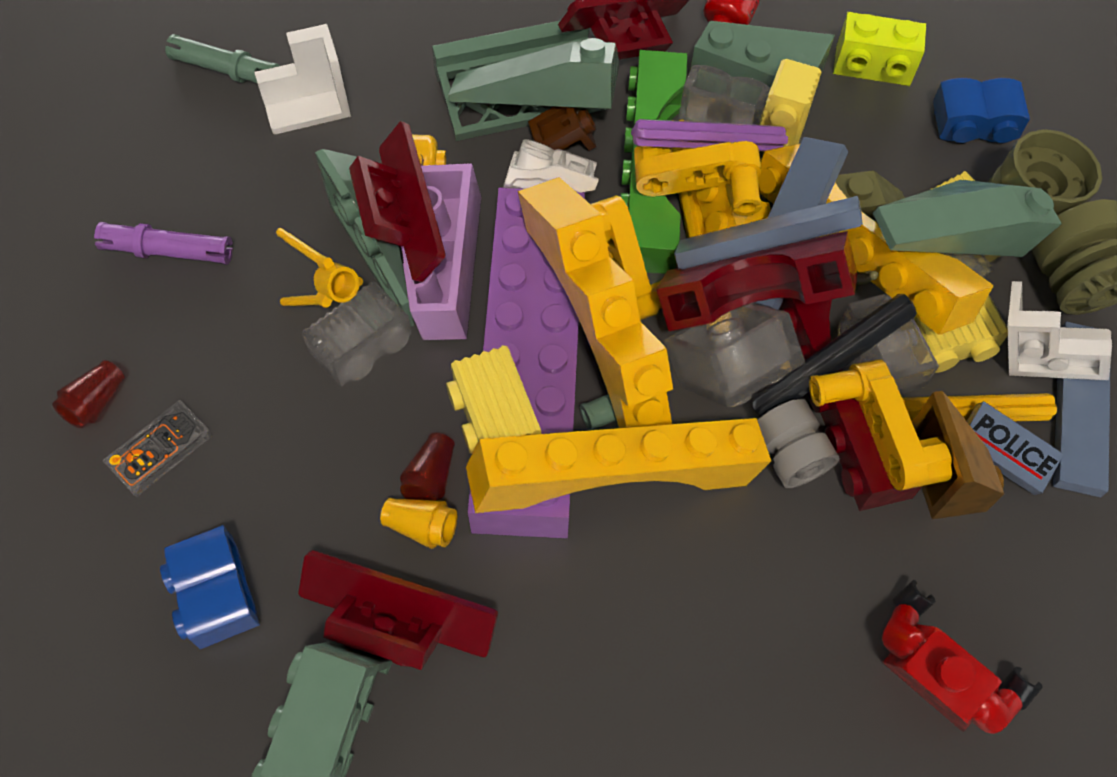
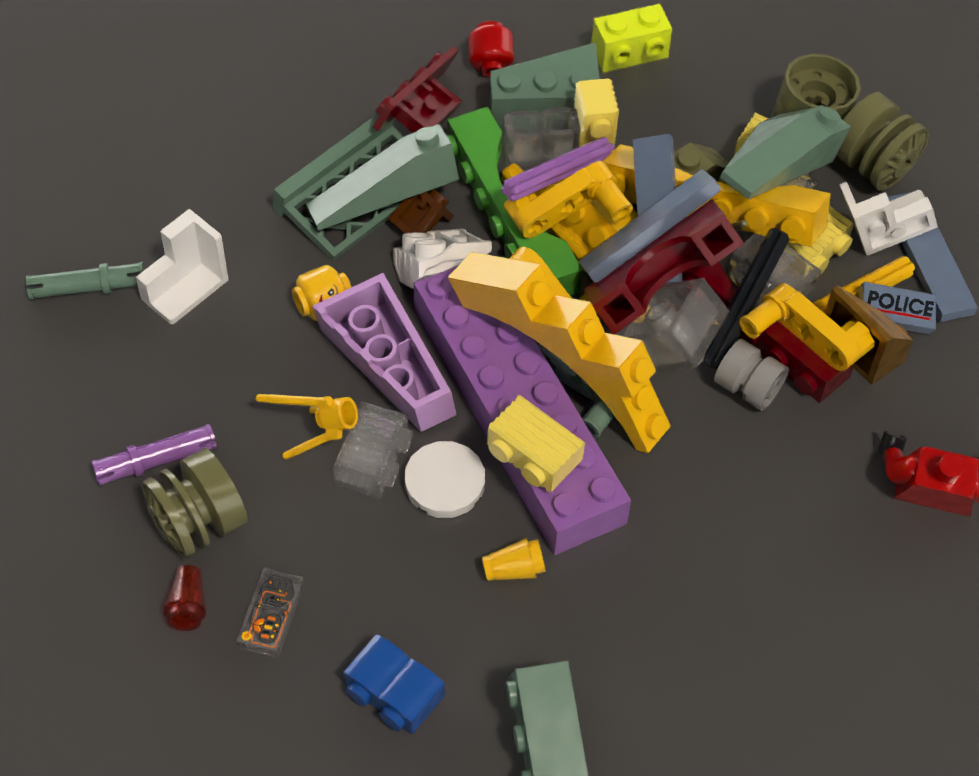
camera: 30 degrees left, 5 degrees down
(147, 304) = (201, 499): none -> olive wheel
(380, 256) = (315, 356): sand green wedge -> none
(392, 614) = (541, 631): dark red bracket -> none
(397, 202) = (354, 326): dark red bracket -> none
(410, 398) = (444, 479): none -> white tile
(429, 469) = (497, 523): clear red cone -> none
(540, 467) = (596, 470): yellow arch -> none
(982, 110) = (735, 56): blue brick -> none

